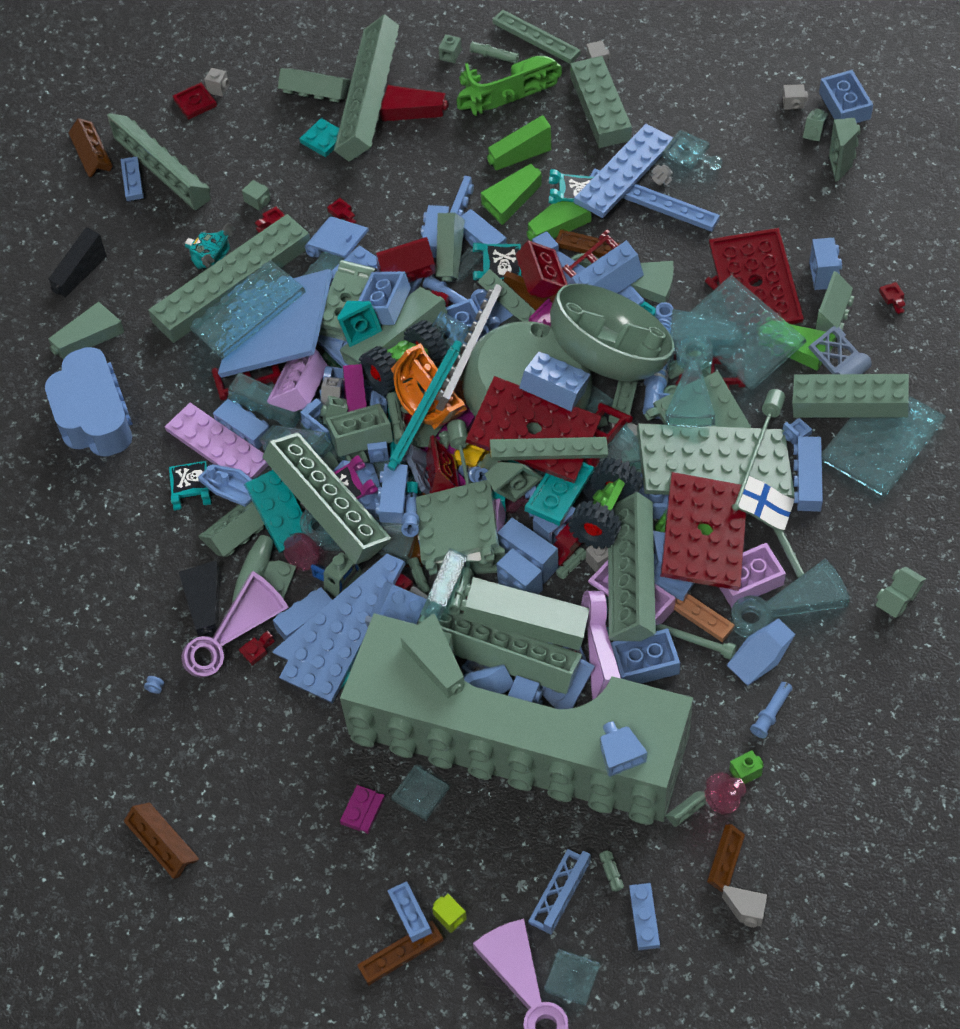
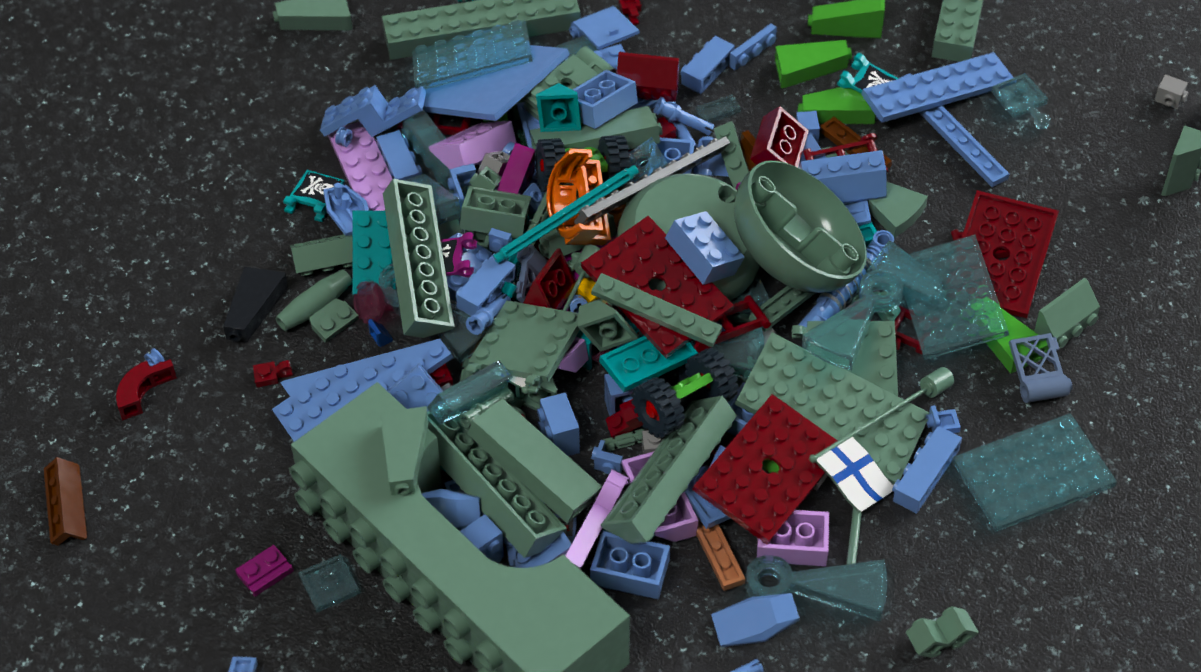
camera: 25 degrees right, 5 degrees down
(89, 404) = (270, 77): medium blue brick -> none
(153, 710) = (138, 382): none -> dark red arch
(186, 425) = (343, 136): none -> medium blue bush
(193, 391) = (373, 110): none -> medium blue bracket
(252, 606) = (287, 331): lavender piece -> none
(301, 611) = (326, 358): medium blue brick -> none
(340, 574) = (390, 337): sand green torso -> none
(440, 283) = (675, 113): none -> medium blue pin
(449, 245) = (708, 80): sand green slope -> none
(479, 231) = (750, 87): medium blue brick -> none
(498, 258) = (747, 114): flag -> none
(530, 546) = (586, 404): medium blue brick -> none
(570, 587) = (606, 461): none -> medium blue bracket
(621, 749) = (517, 626): medium blue torso -> none
(662, 175) = (975, 108): light grey gear -> none
(727, 650) = (720, 599): sand green piece -> none
(814, 124) = (1172, 128): sand green bracket -> none
(824, 262) = (1088, 263): medium blue brick -> none
(850, 395) = (1023, 411): sand green brick -> none
(893, 294) = (1144, 334): dark red plate -> none

